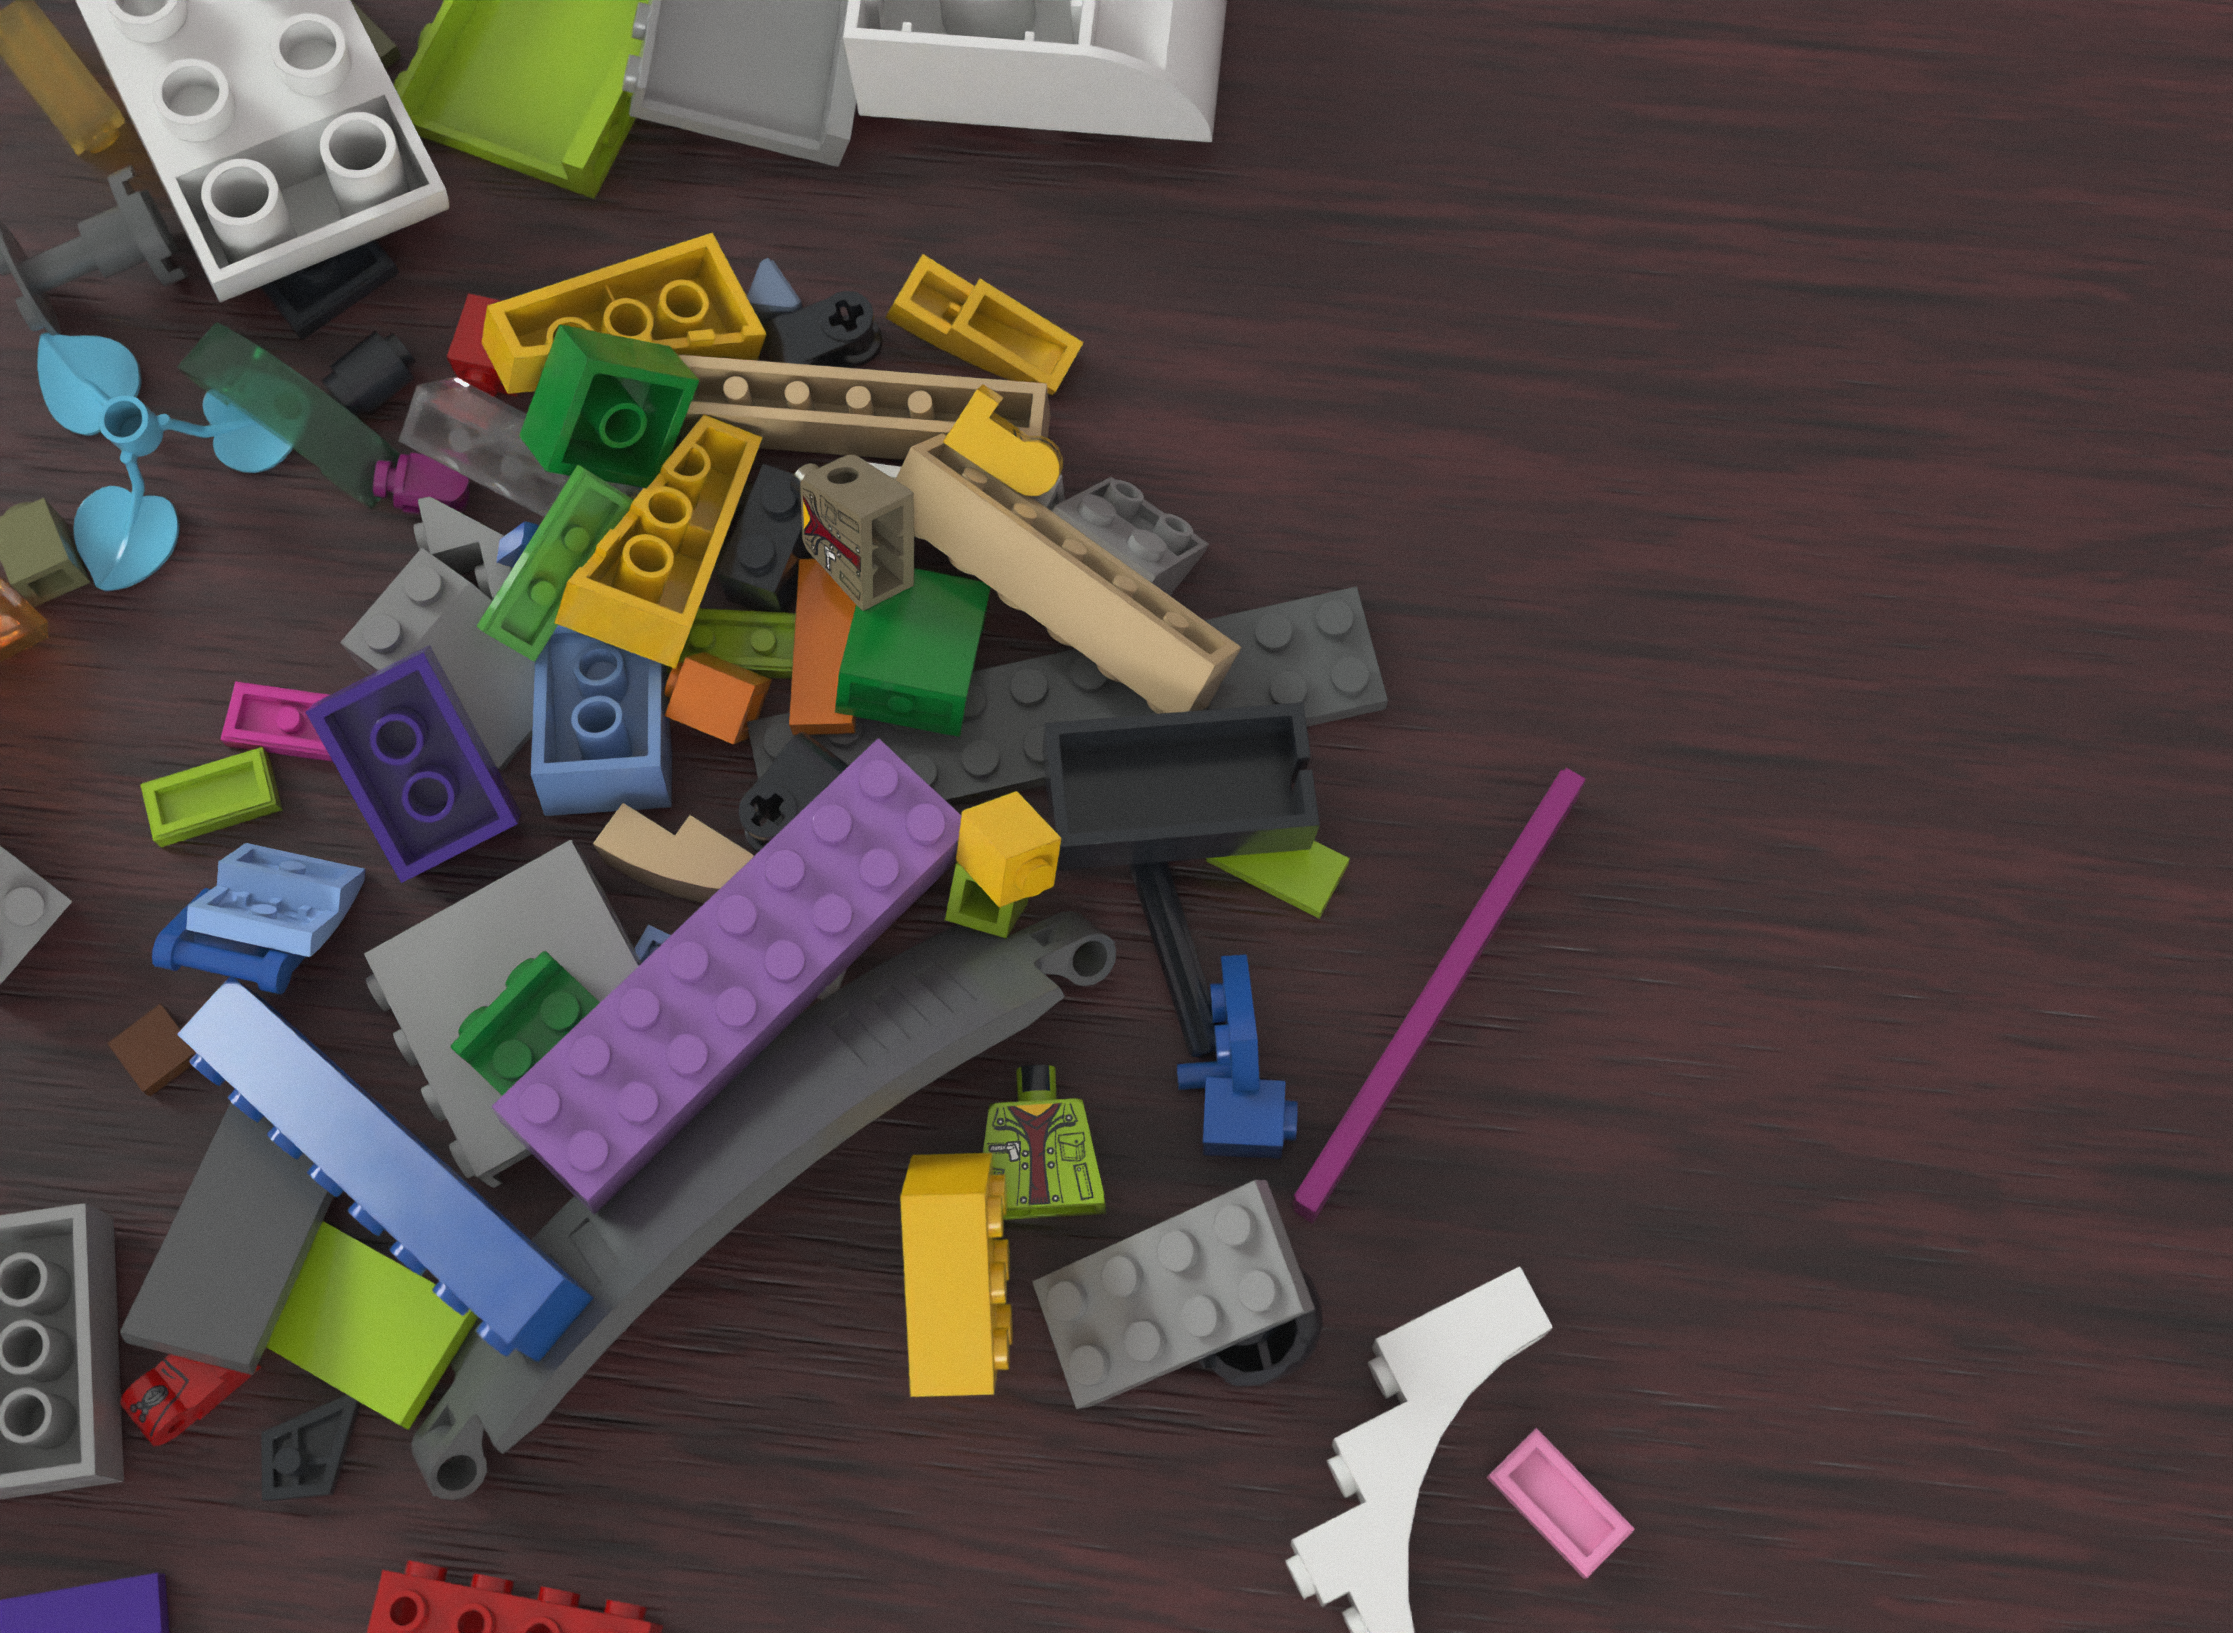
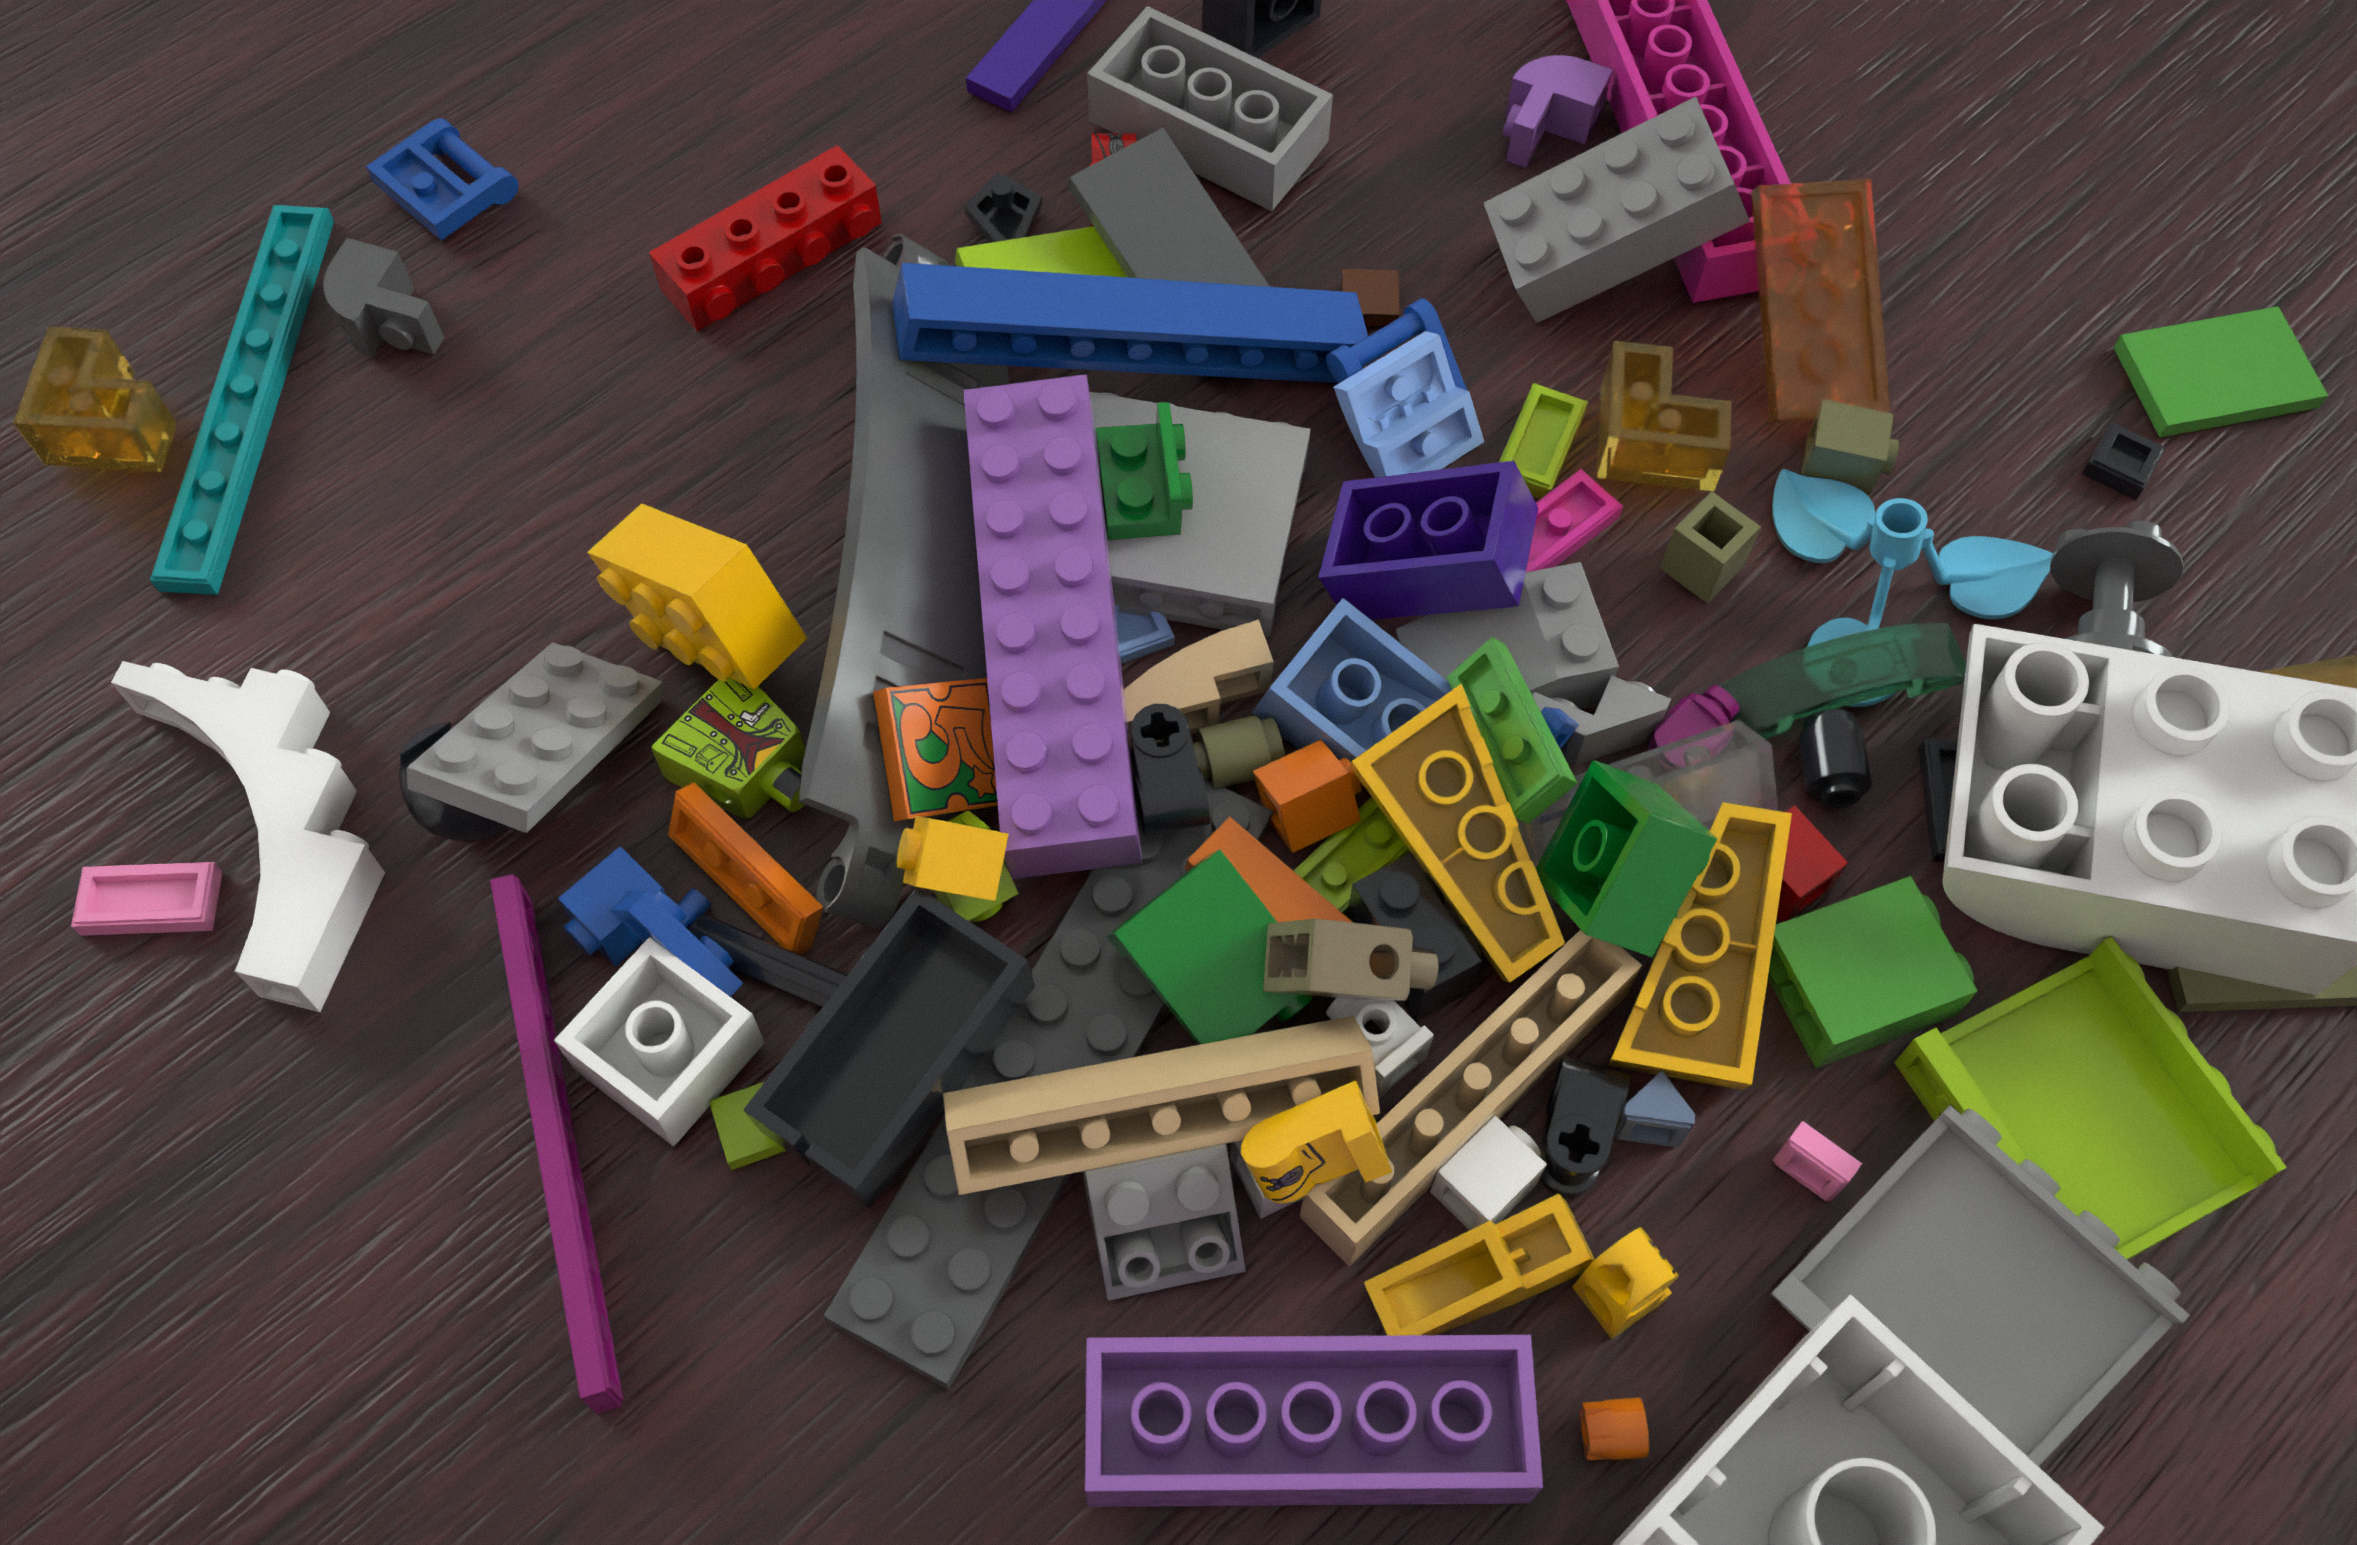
camera: 125 degrees right, 10 degrees down
(143, 710) = (1655, 434): none -> clear yellow brick
(237, 574) = (1709, 547): none -> olive brick
(537, 232) = (1867, 971): none -> bright green brick
(713, 781) = (1236, 748): none -> olive brick
(724, 184) = (1816, 1162): none -> bright pink tile
(912, 351) = (1489, 1174): none -> white brick
(915, 225) = (1626, 1282): none -> yellow leg
(916, 969) = (937, 747): none -> tile
(1016, 183) = (1614, 1429): none -> orange hose
(1133, 1053) = (744, 870): none -> orange tile
(1182, 344) = (1311, 1421): none -> medium lavender brick
(1315, 969) = (661, 1041): none -> white brick

